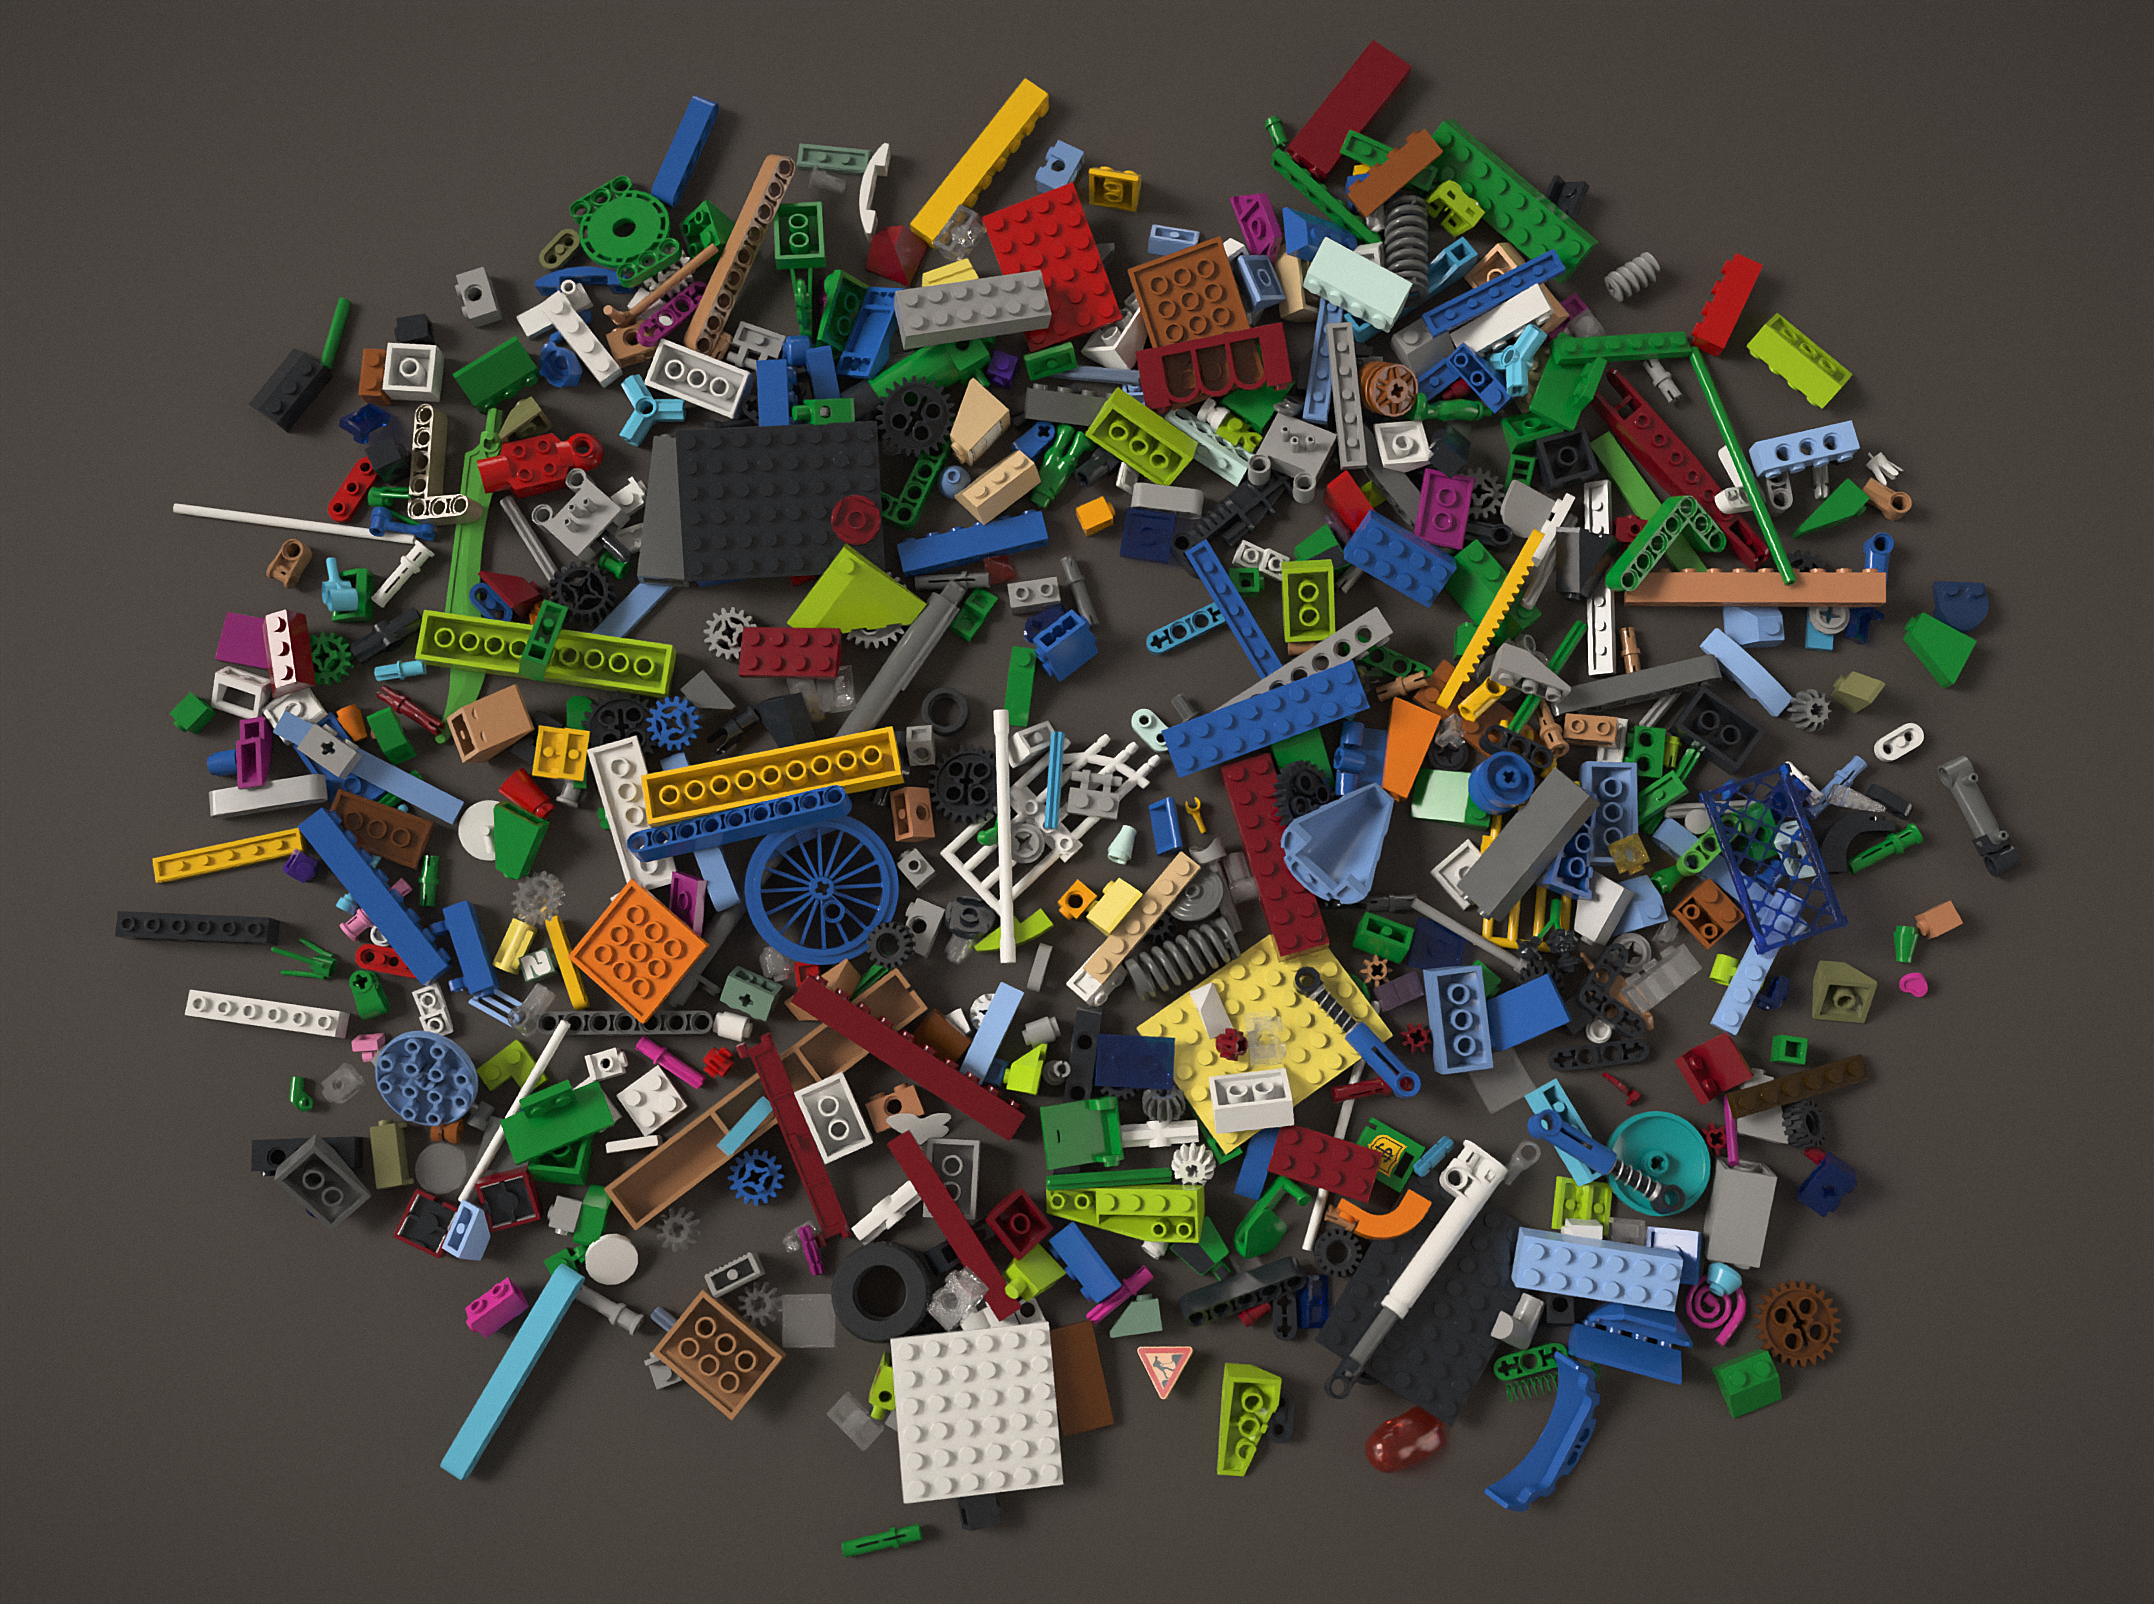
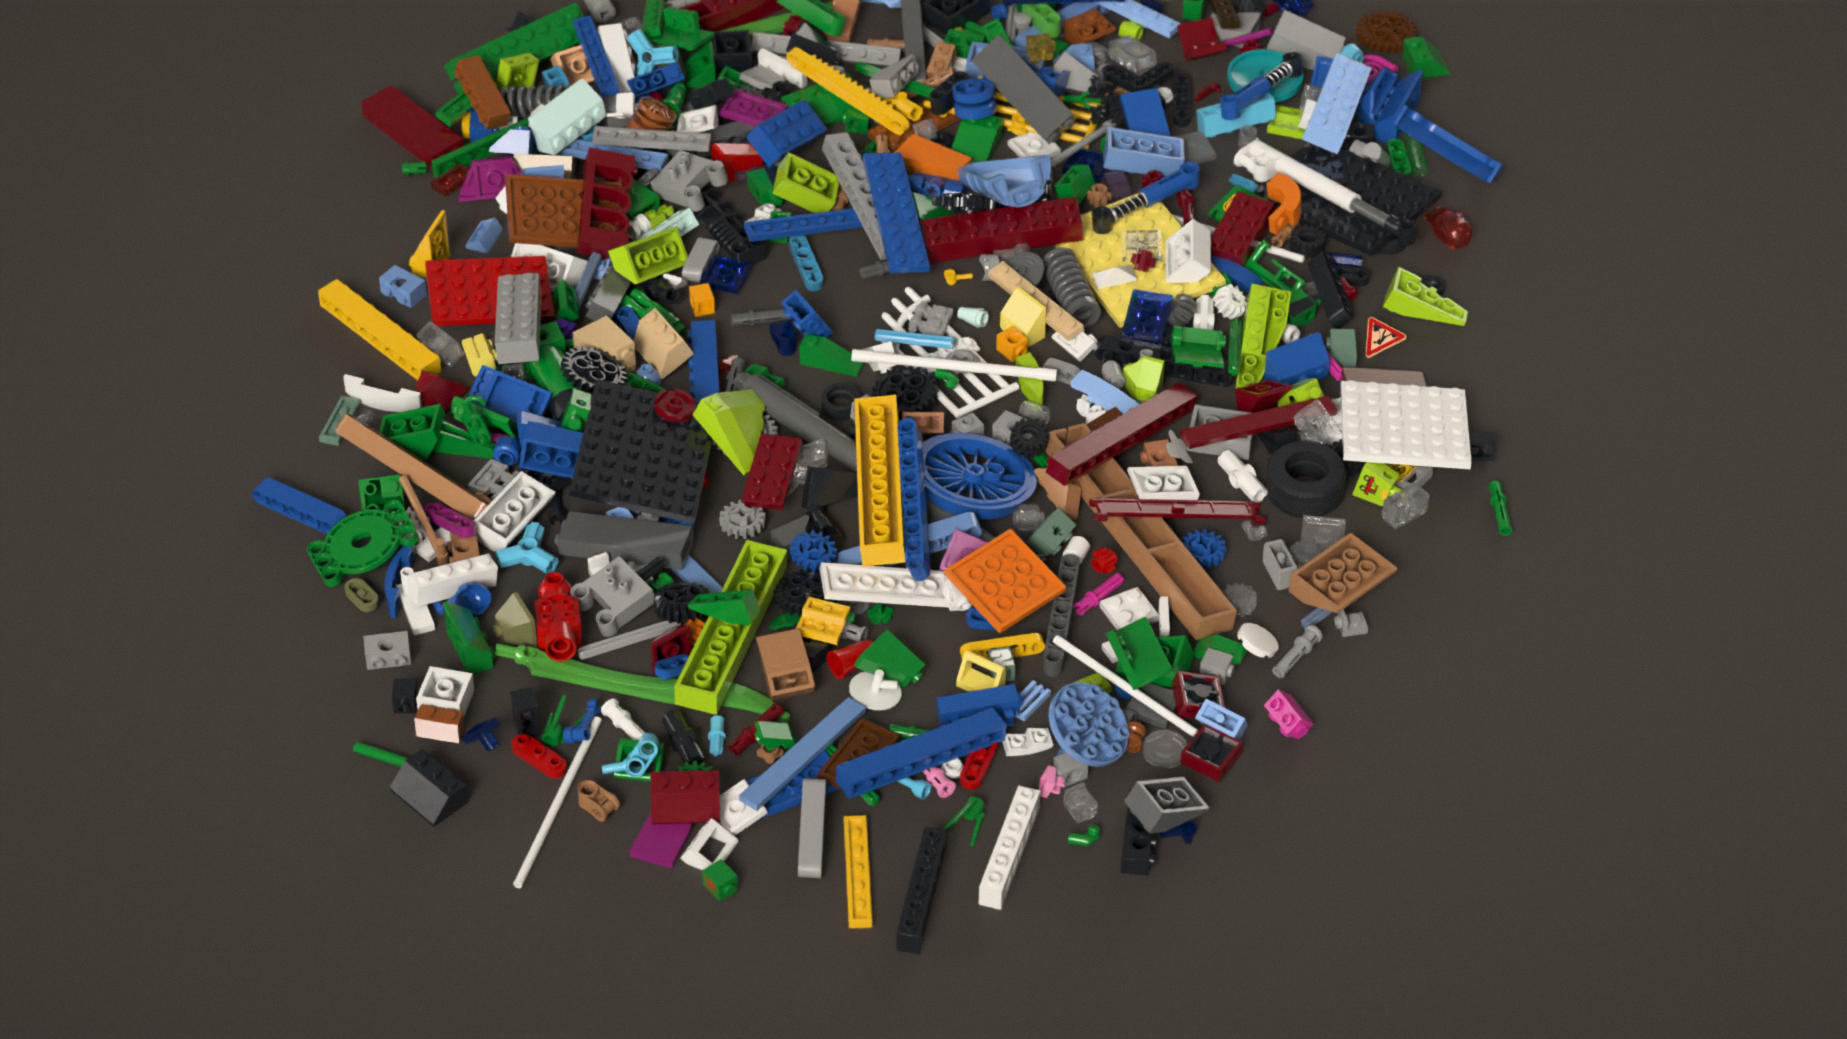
camera: 85 degrees left, 35 degrees down
(223, 763) = (772, 860): blue brick -> none
(253, 752) = (769, 831): magenta slope -> none
(301, 866) = (881, 808): dark purple brick -> none
(316, 745) = (786, 762): light grey brick -> none
(352, 722) = (753, 769): orange cone -> none
(369, 998) = (1005, 778): green piece -> none
(389, 1154) = (1144, 770): olive brick -> none
(427, 474) = (547, 692): dark tan beam -> none
(512, 1372) = (1344, 708): medium azure beam -> none
(525, 1017) = (1038, 672): clear piece -> none
(538, 898) = (943, 657): clear gear -> none
(566, 1257) = (1258, 678): green plate -> none
(617, 1064) = (1092, 627): white brick -> none
(745, 1126) = (1162, 533): medium azure piece -> none
(803, 969) = (1043, 503): red tile -> none
(811, 1250) = (1266, 521): magenta axle -> none
(969, 917) = (1016, 400): black tile -> none
(1033, 595) = (758, 339): light grey brick -> none
(1149, 731) = (884, 292): light aqua plate -> none
(1165, 826) = (964, 293): blue tile -> none
(1262, 180) = (450, 180): none -> clear red plate
(1406, 351) = (624, 106): none -> white bracket

